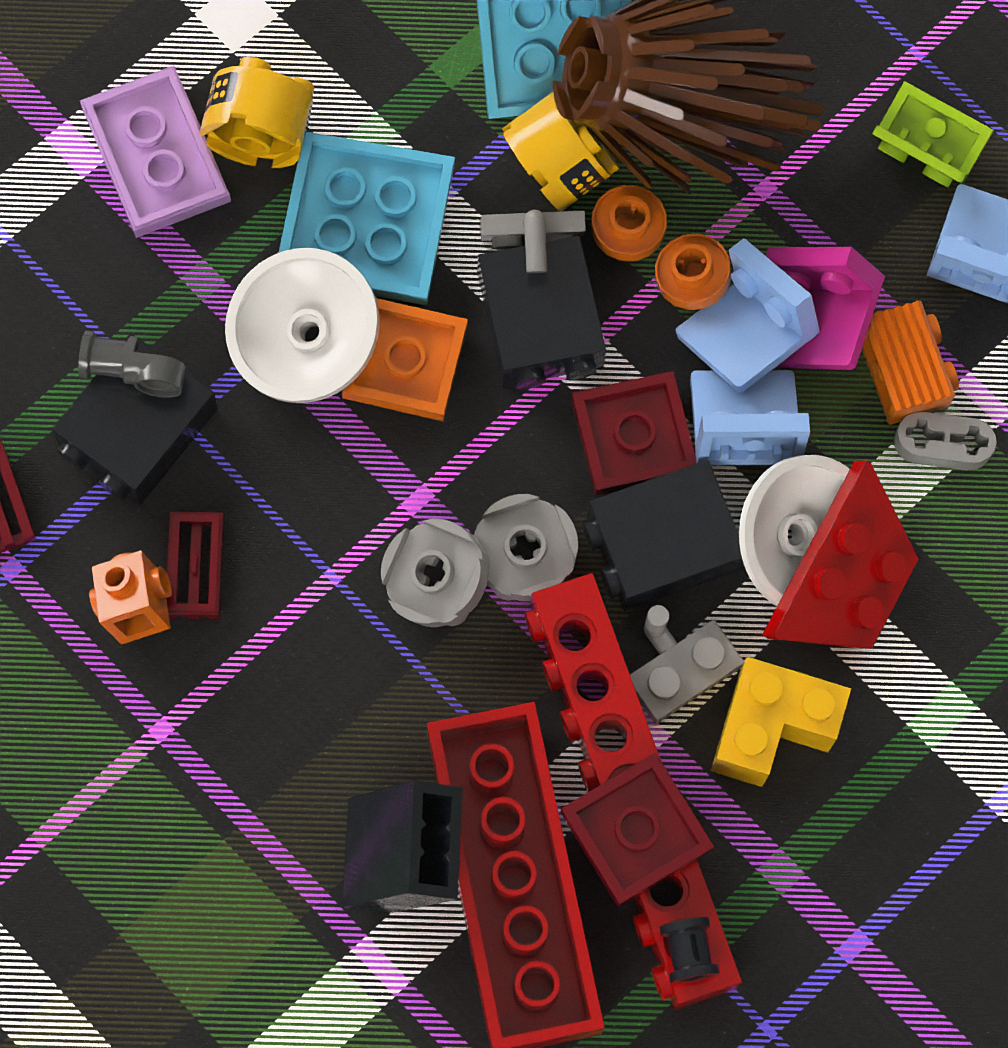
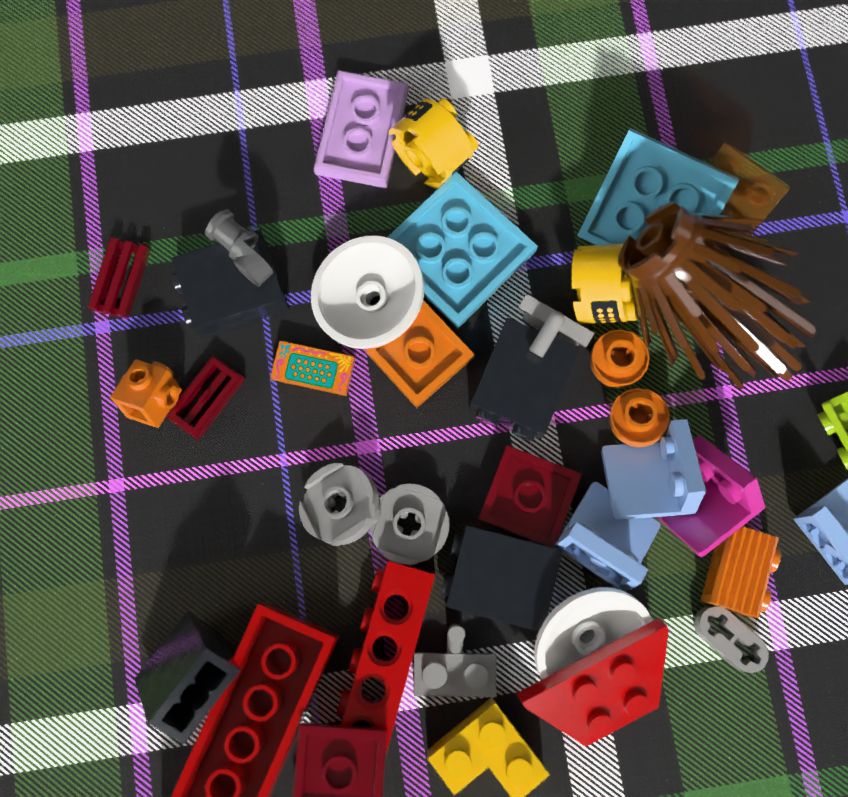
camera: 40 degrees right, 5 degrees up
(295, 453) = (313, 368): none -> tile

